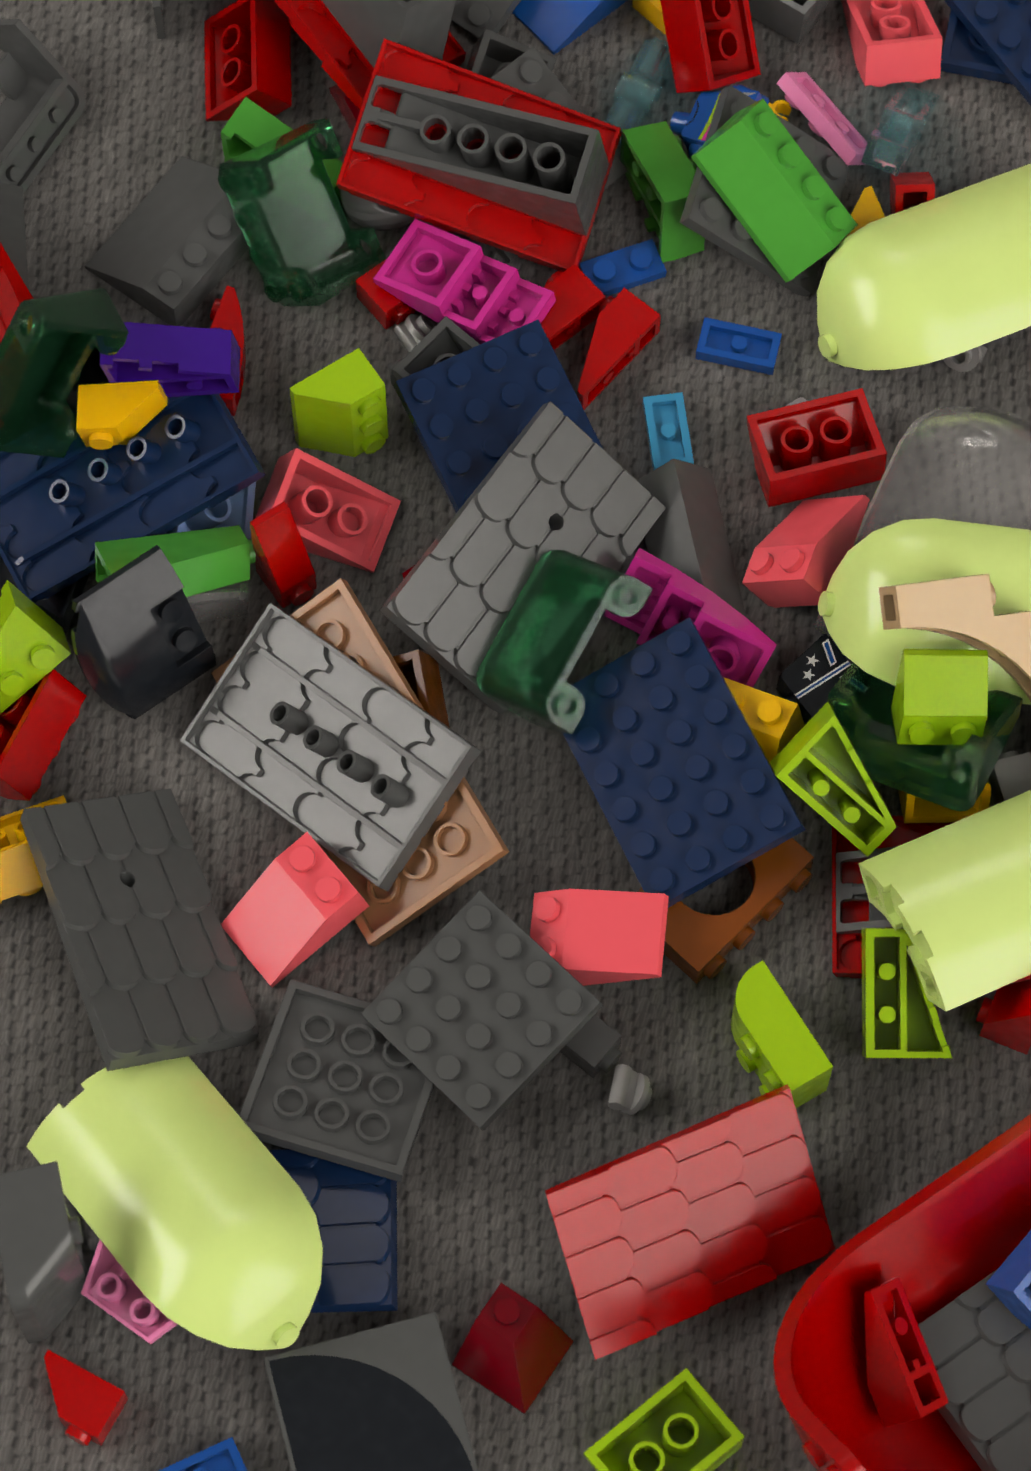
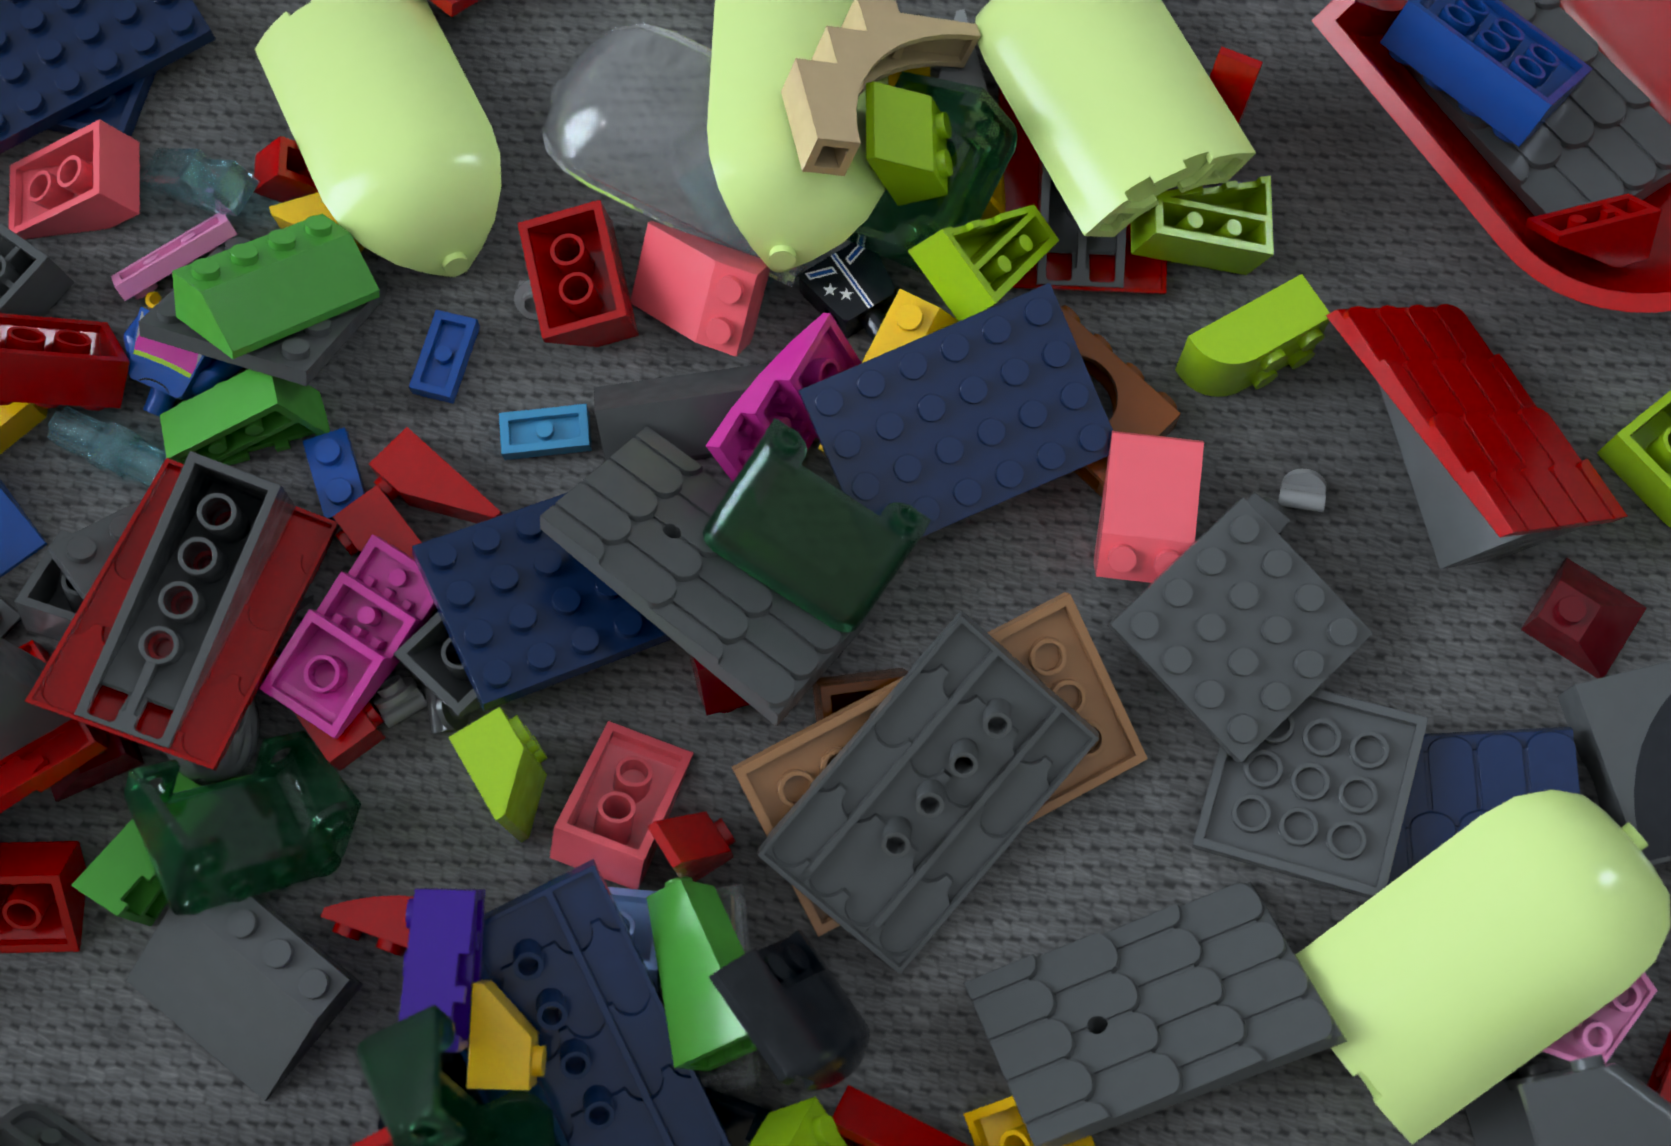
camera: 85 degrees left, 5 degrees up
(292, 910) = (1116, 838): coral slope -> none

